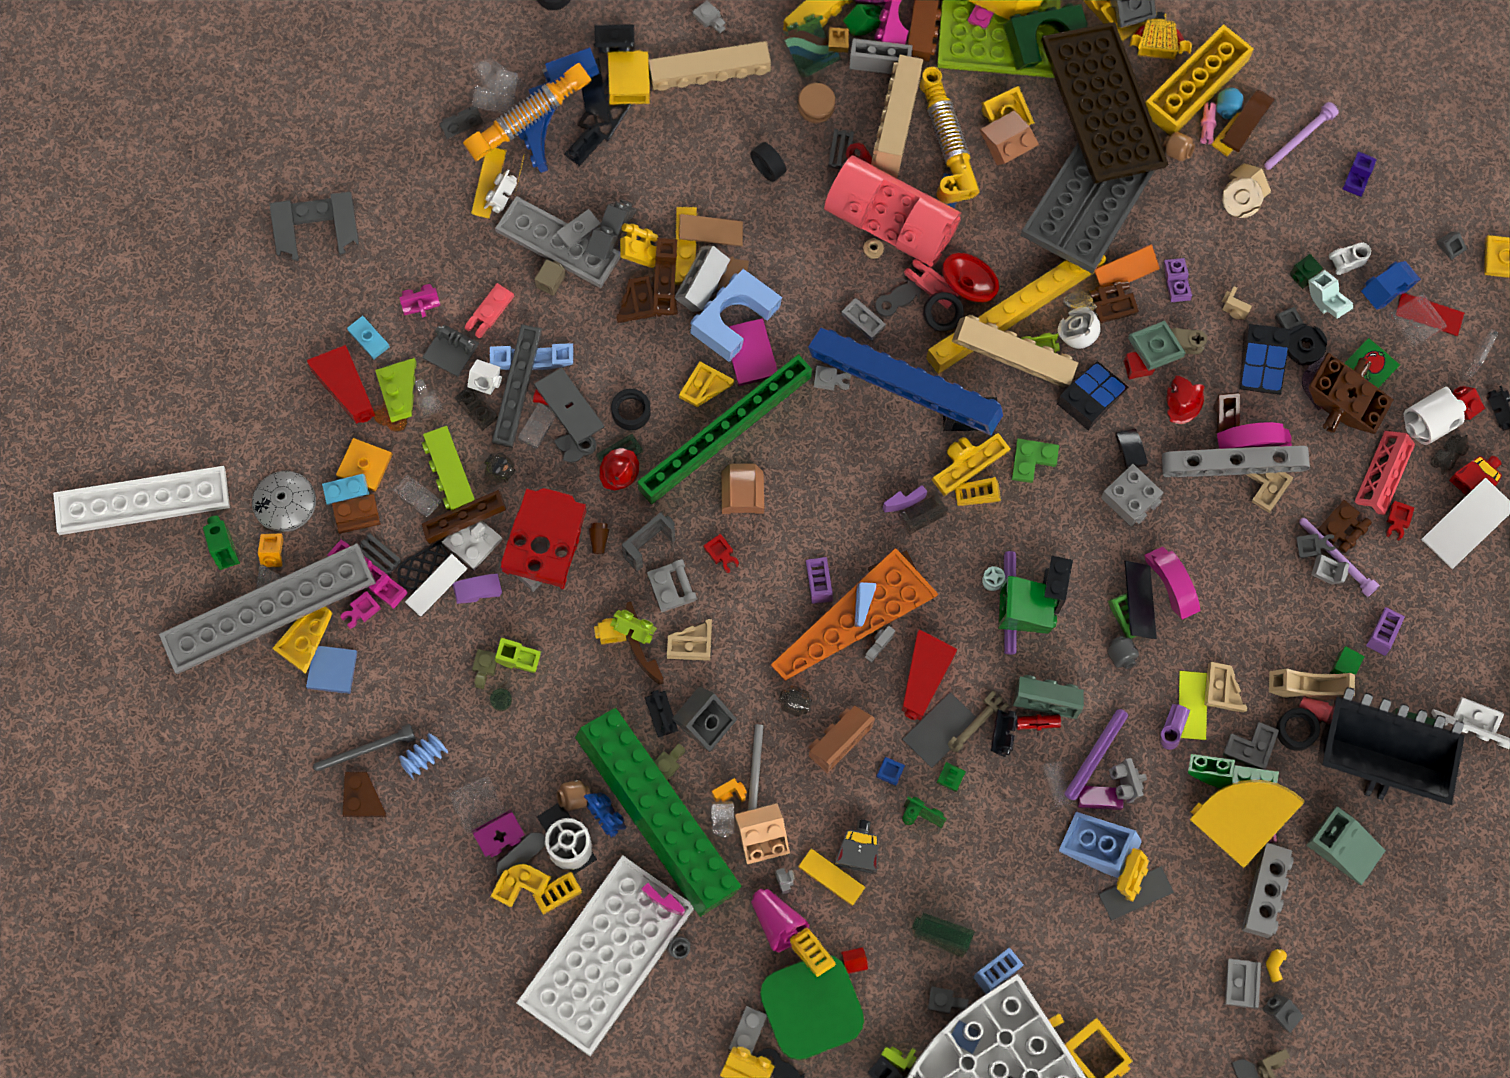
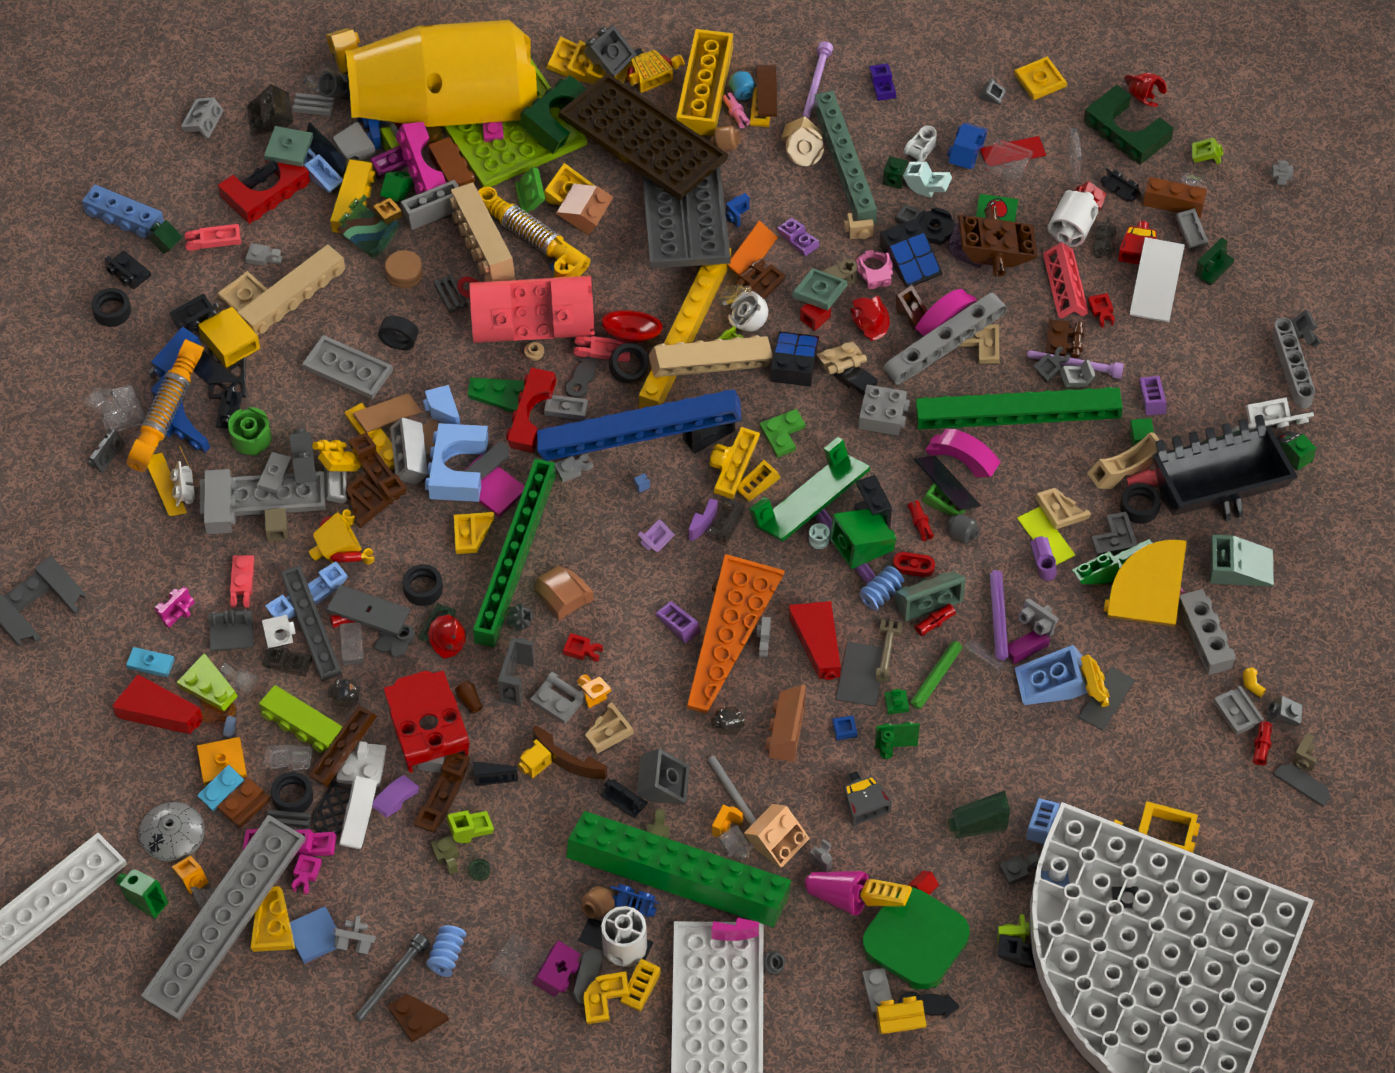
camera: 30 degrees left, 15 degrees down
(358, 691) = (363, 940): none -> light grey hips
(389, 438) = (230, 726): none -> sand blue tile
(398, 515) = (292, 778): none -> black tyre
(514, 228) = (219, 501): none -> light grey brick
(516, 613) = (444, 793): none -> reddish brown slope
(566, 619) = (493, 773): none -> black slope
(585, 177) = (249, 431): none -> bright green brick
(588, 324) = (337, 541): none -> yellow torso
(621, 273) = (335, 486): none -> light grey tile
(641, 628) = (544, 741): lime hinge -> none
(669, 41) = (241, 291): none -> tan tile
(688, 491) = (519, 617): none -> dark grey gear
(701, 599) = (593, 690): none -> light orange bracket
(707, 166) = (347, 367): none -> light grey plate
(759, 252) = (441, 405): none -> light blue slope
(762, 330) = (490, 460): none -> dark grey piece
(820, 272) = (496, 392): none -> green wing
(831, 877) = (858, 834): yellow tile -> none
(848, 287) = (538, 387): none -> red arch
(854, 490) = (656, 536): none -> lavender bracket
(864, 596) = (728, 607): light blue slope -> none
(876, 433) = (641, 483): none -> medium blue piece
(973, 94) = (530, 190): none -> bright green plate
(1003, 741) = (918, 650): black hinge -> none
(1003, 774) = (936, 674): none -> bright green axle
(1011, 662) = (881, 588): none -> light blue piece
(1013, 537) = (811, 496): none -> bracket
(1057, 657) = (914, 564): none -> red plate
(1092, 620) = (920, 520): none -> red pin
(1131, 422) = (841, 358): none -> tan plate
(1141, 218) = (736, 207): none -> blue bracket
(1217, 363) = (878, 277): none -> bright pink piece
(1242, 1028) = (1262, 743): none -> red pin
(1255, 569) = (1018, 408): none -> green brick
(1271, 230) = (845, 157): none -> sand green brick
(1477, 766) = (1297, 448): none -> green slope

